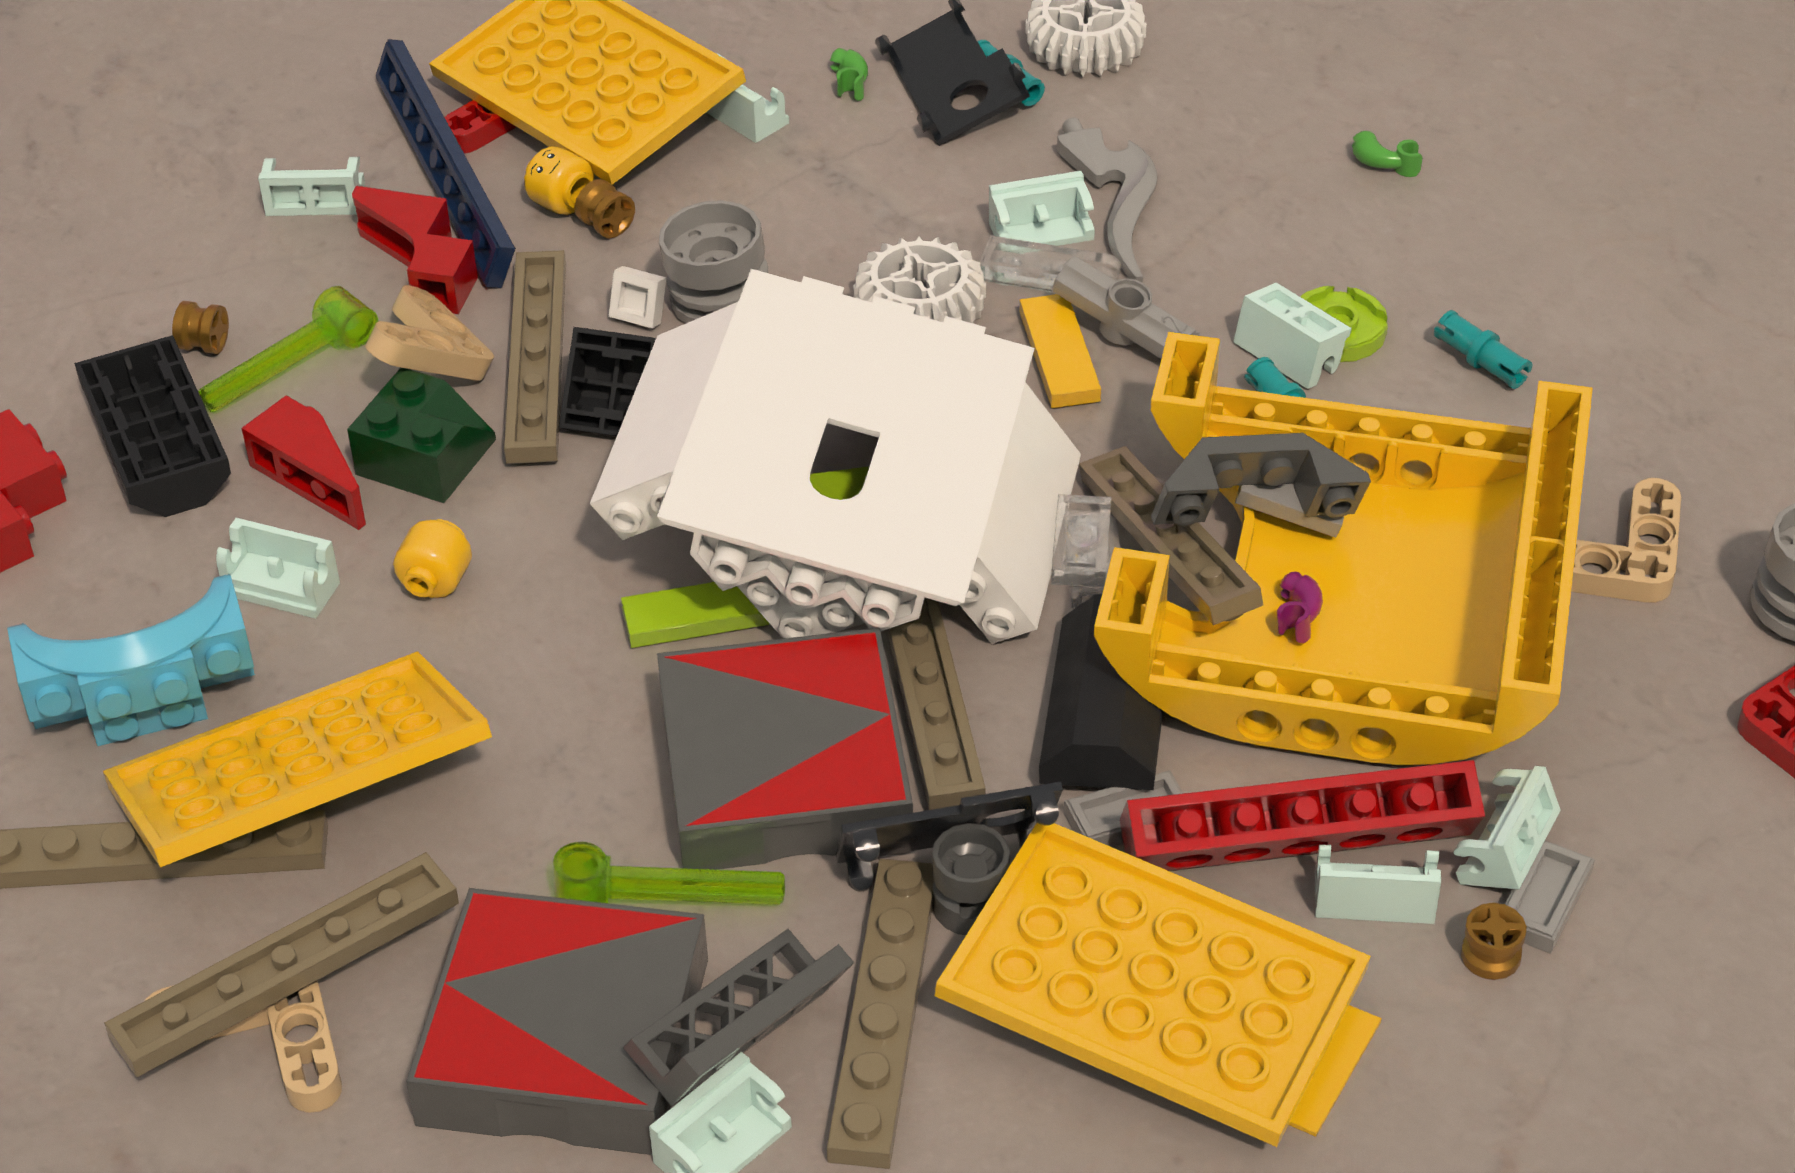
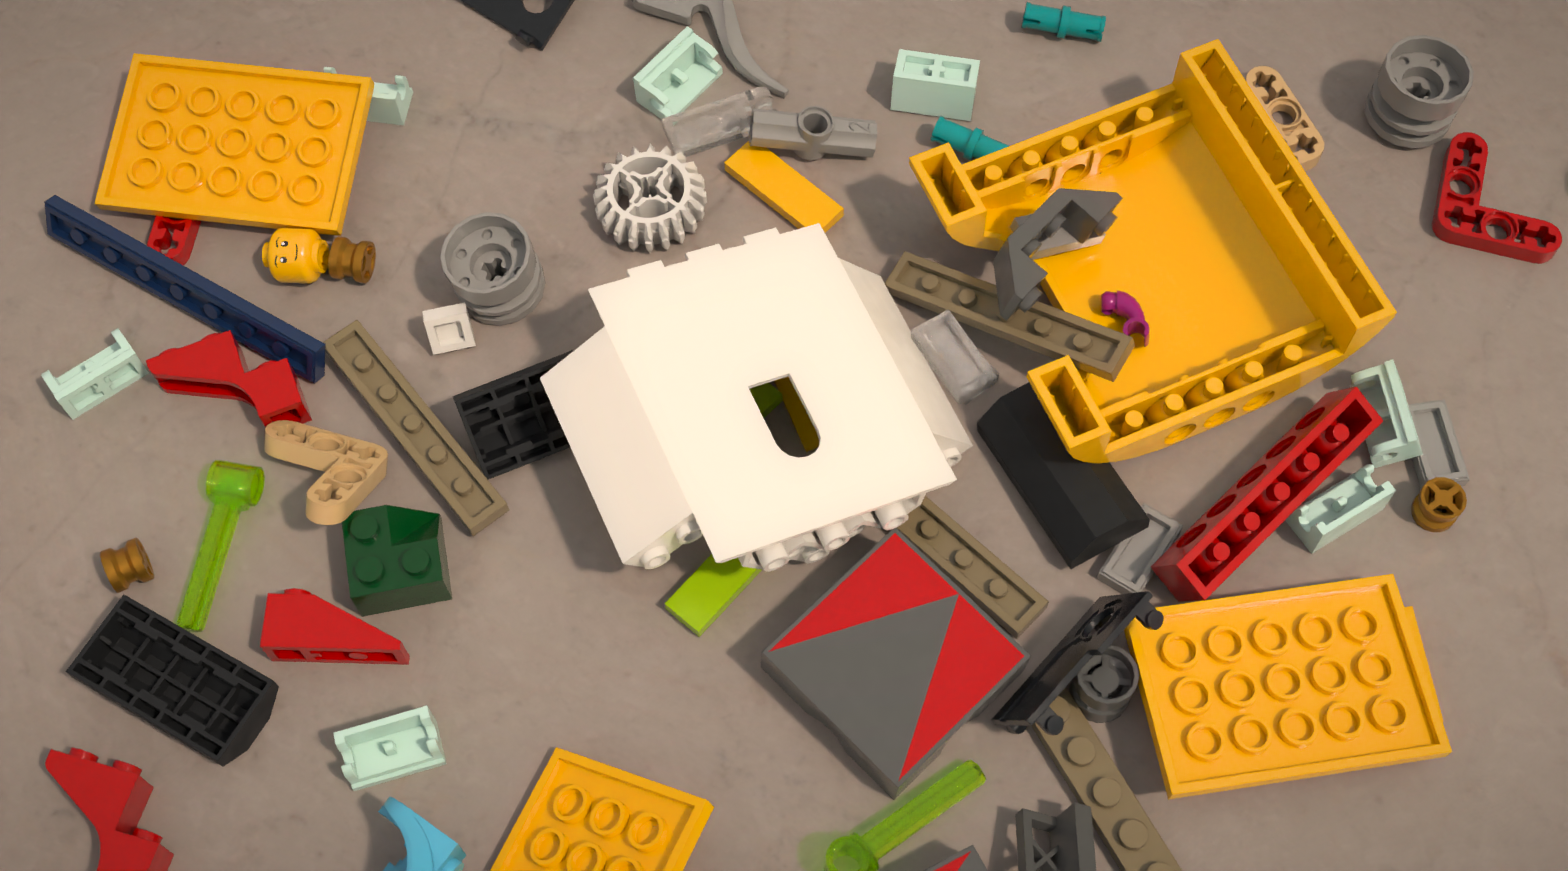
camera: 35 degrees left, 20 degrees up
(434, 557) = (501, 662): yellow head -> none
(851, 72) = (424, 13): bright green arm -> none
(1359, 312) = (952, 38): lime tile -> none

